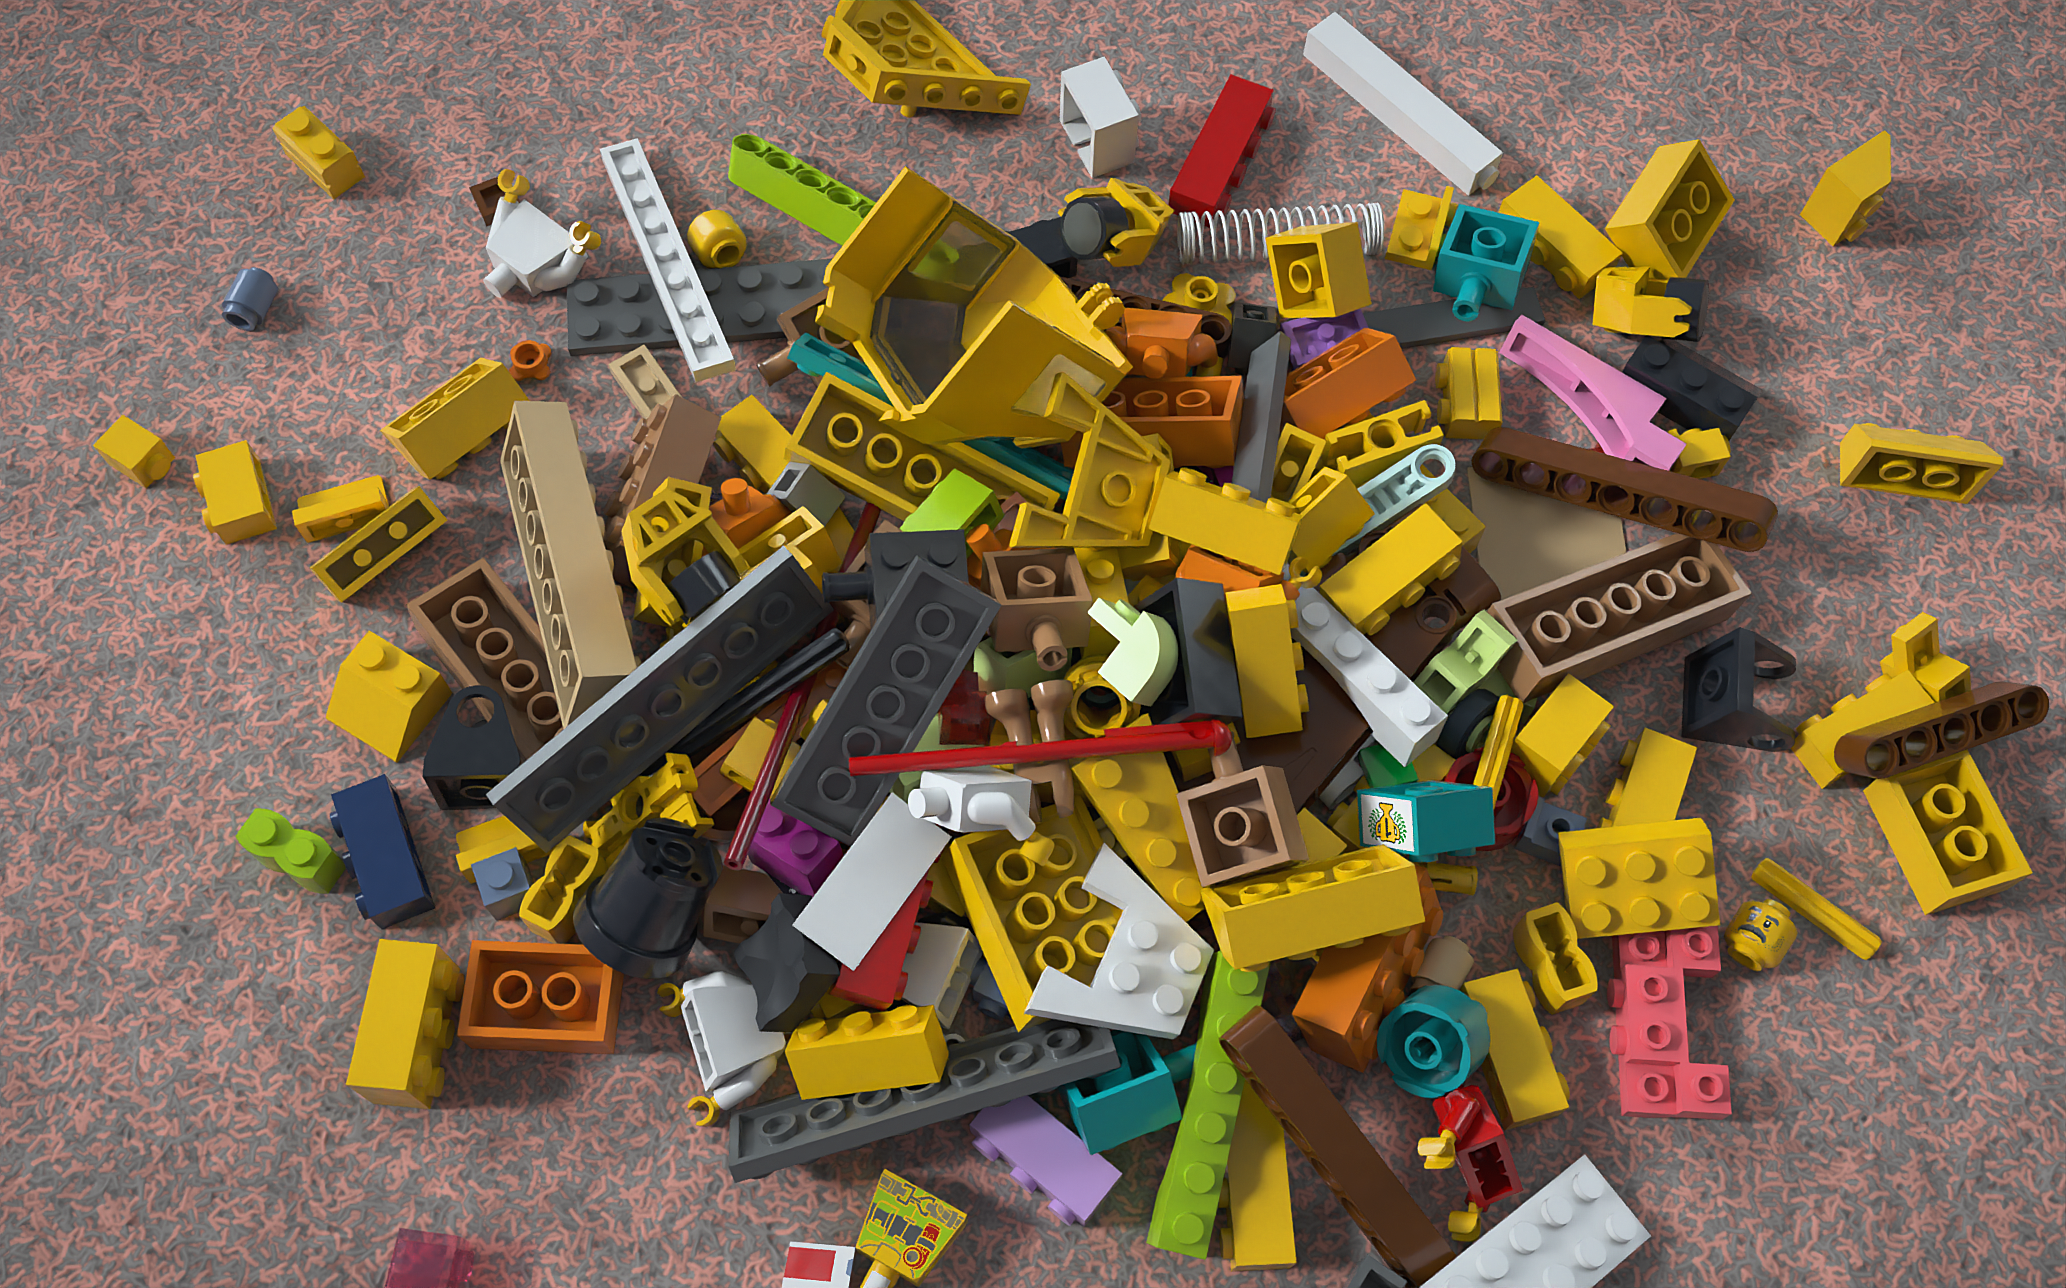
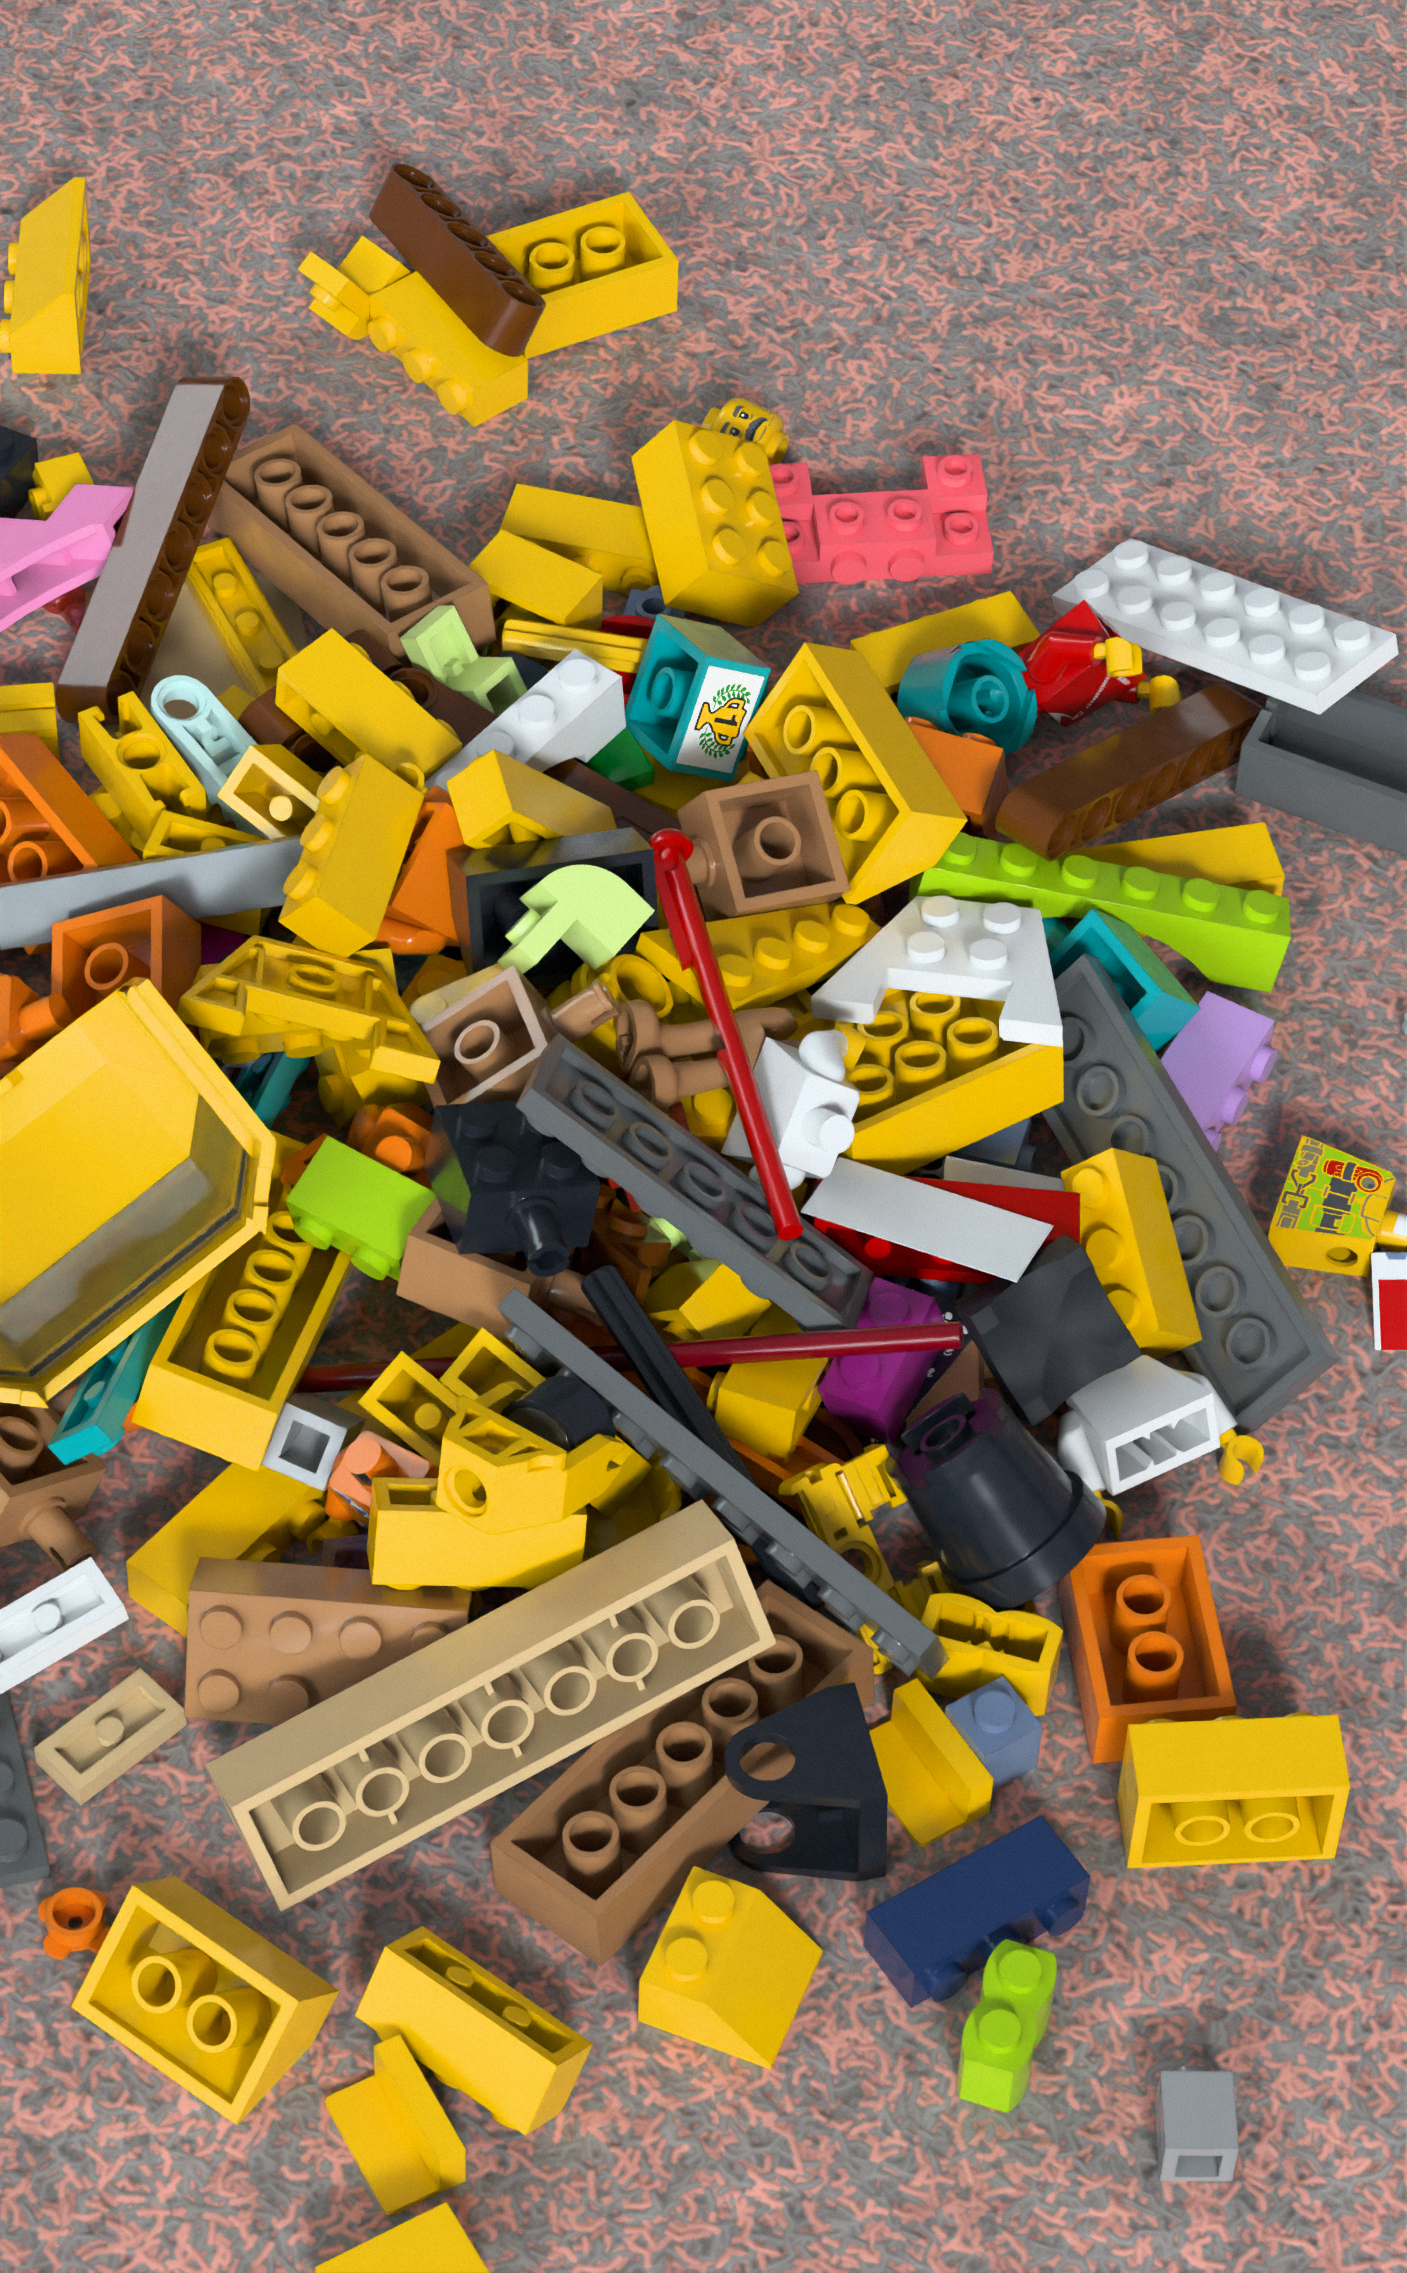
camera: 100 degrees left, 15 degrees down
(189, 955) = (1196, 2125): none -> light grey brick
(1550, 561) = (239, 615): none -> yellow tile
(1560, 969) = (824, 609): yellow brick -> none
(1721, 692) = (450, 435): black hose -> none
(1816, 909) = (699, 390): yellow axle -> none

